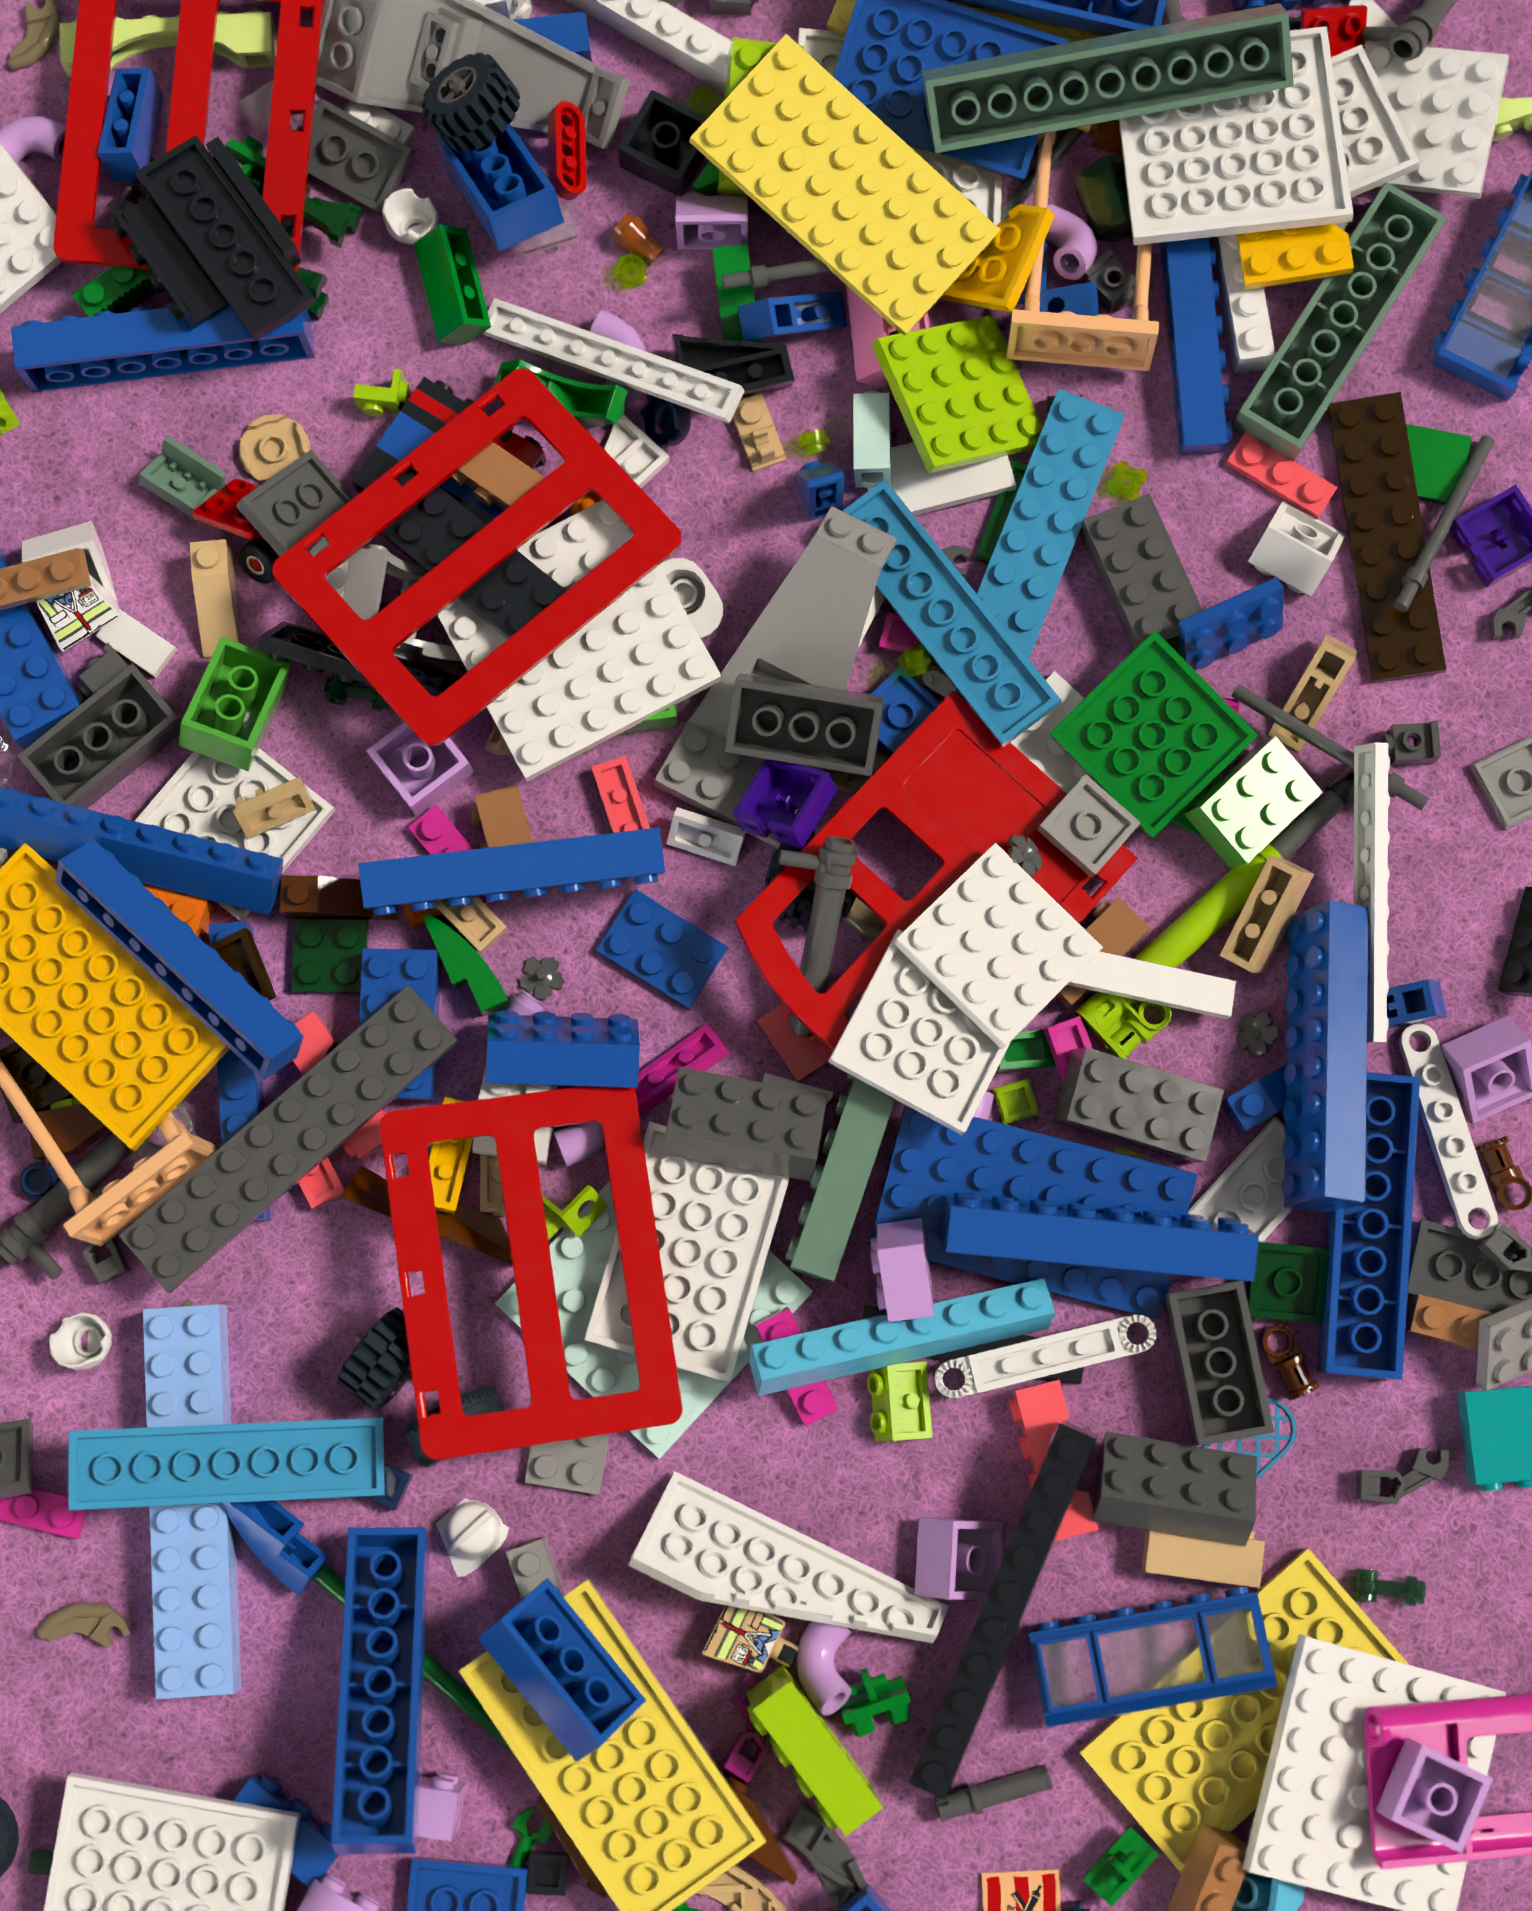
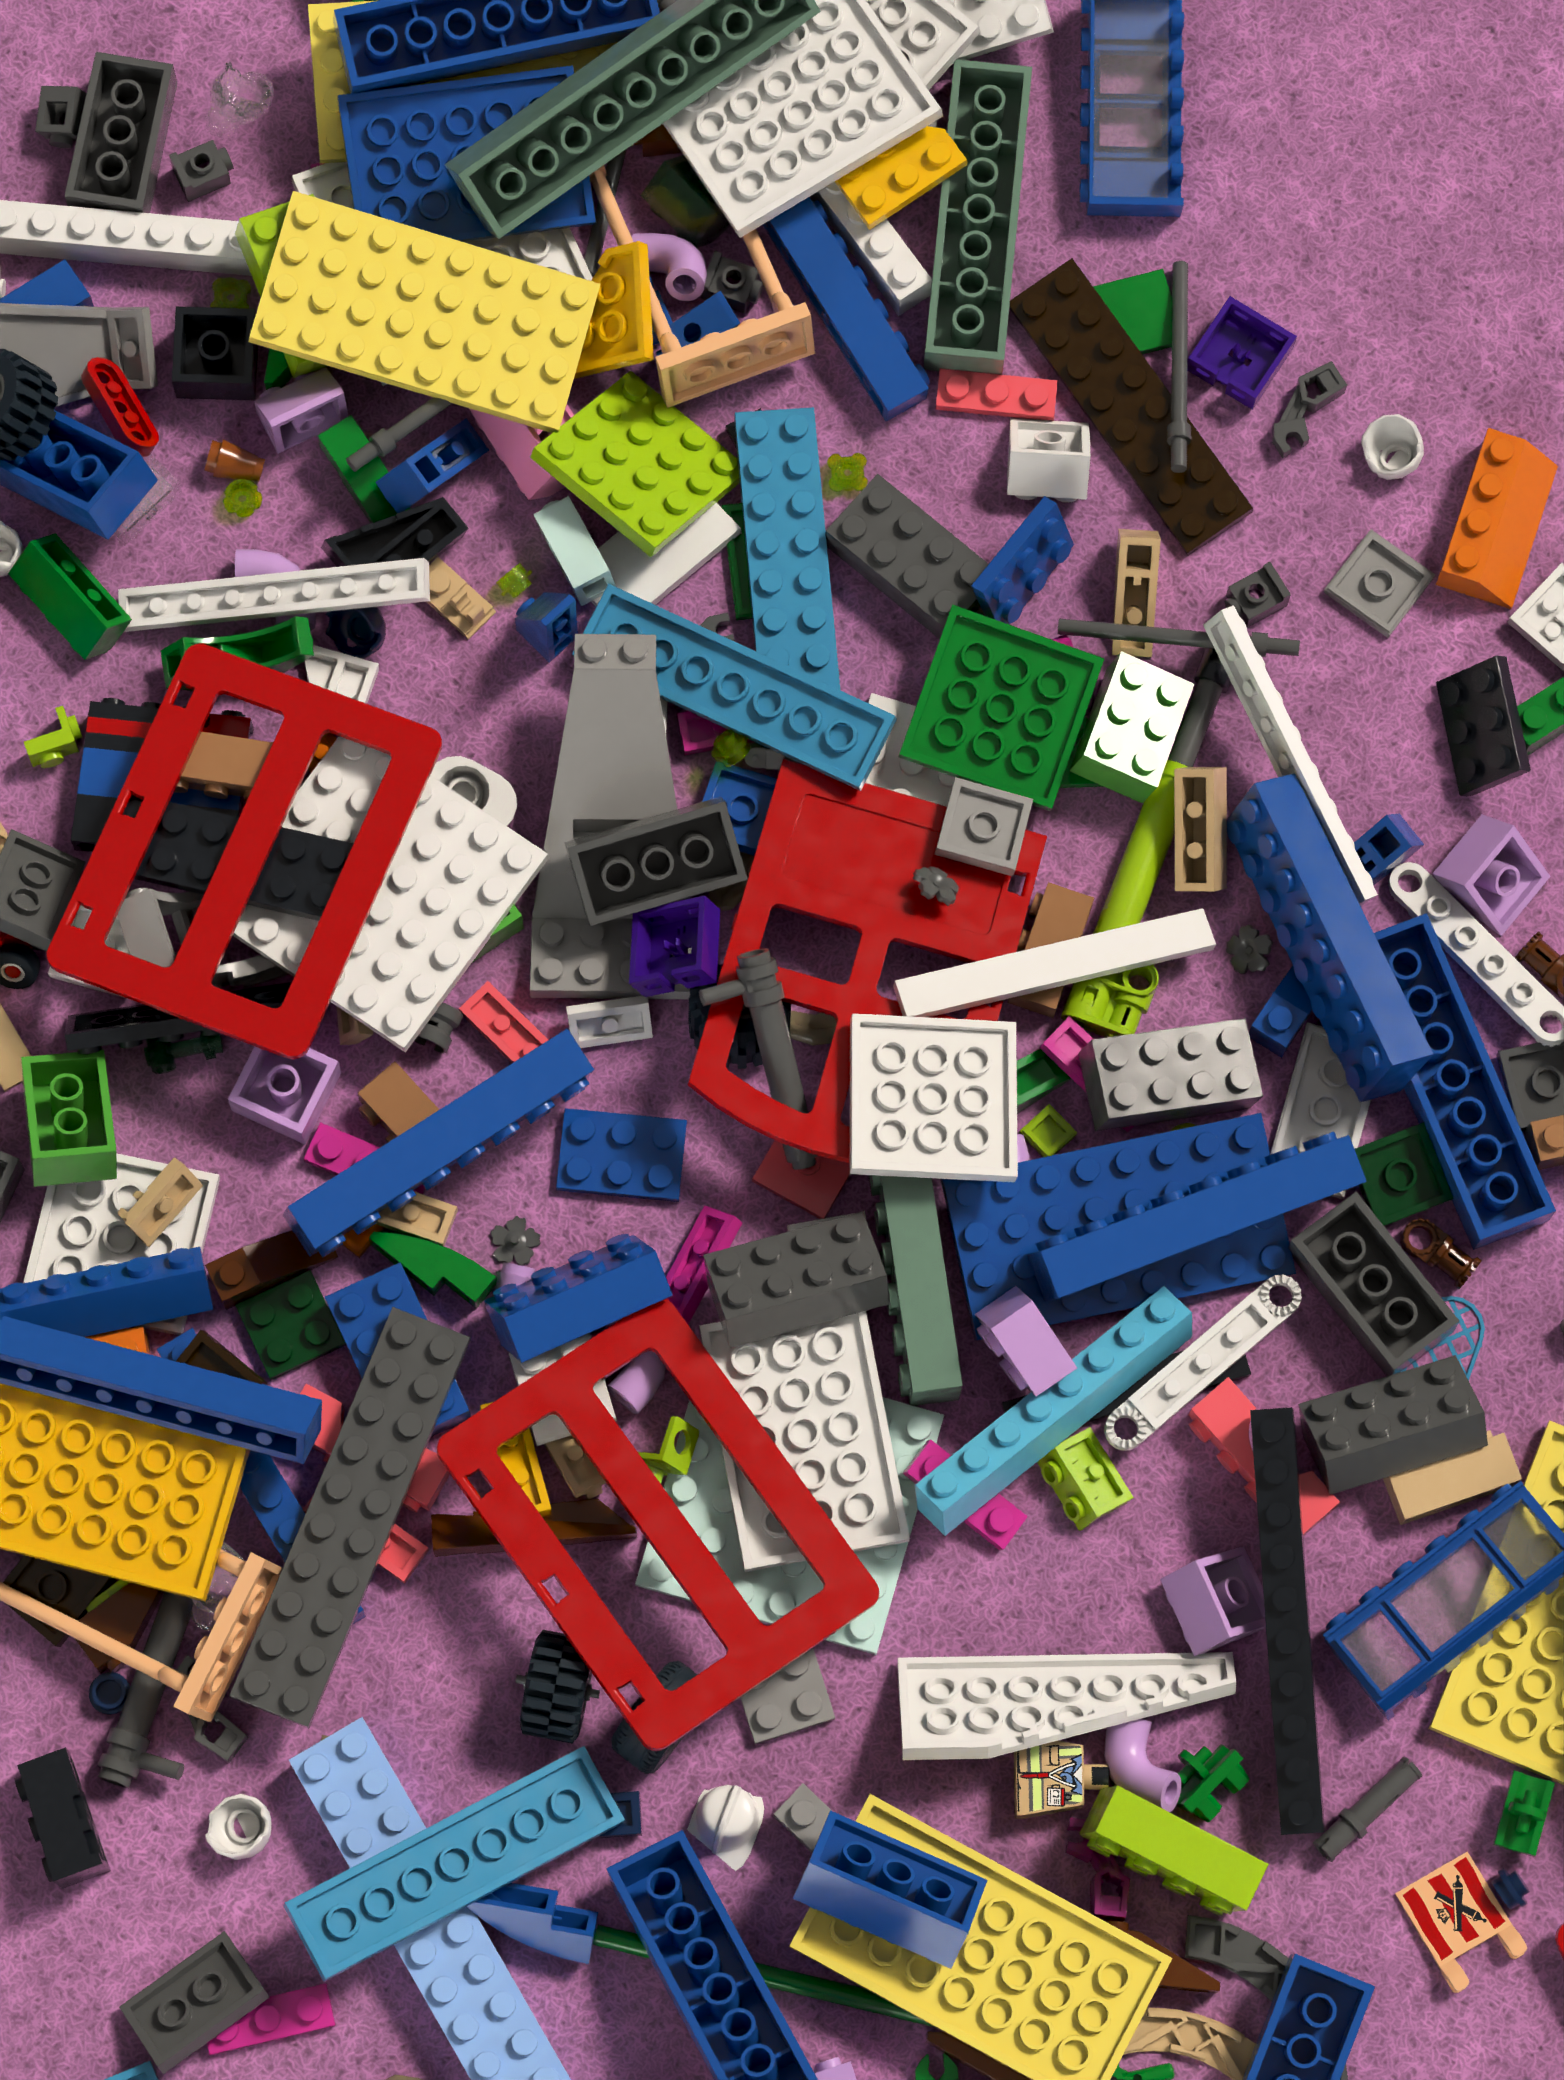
camera: 30 degrees left, 5 degrees down
(568, 774) = (440, 1028): none -> dark grey wheel
(998, 945) = (957, 982): white plate -> none

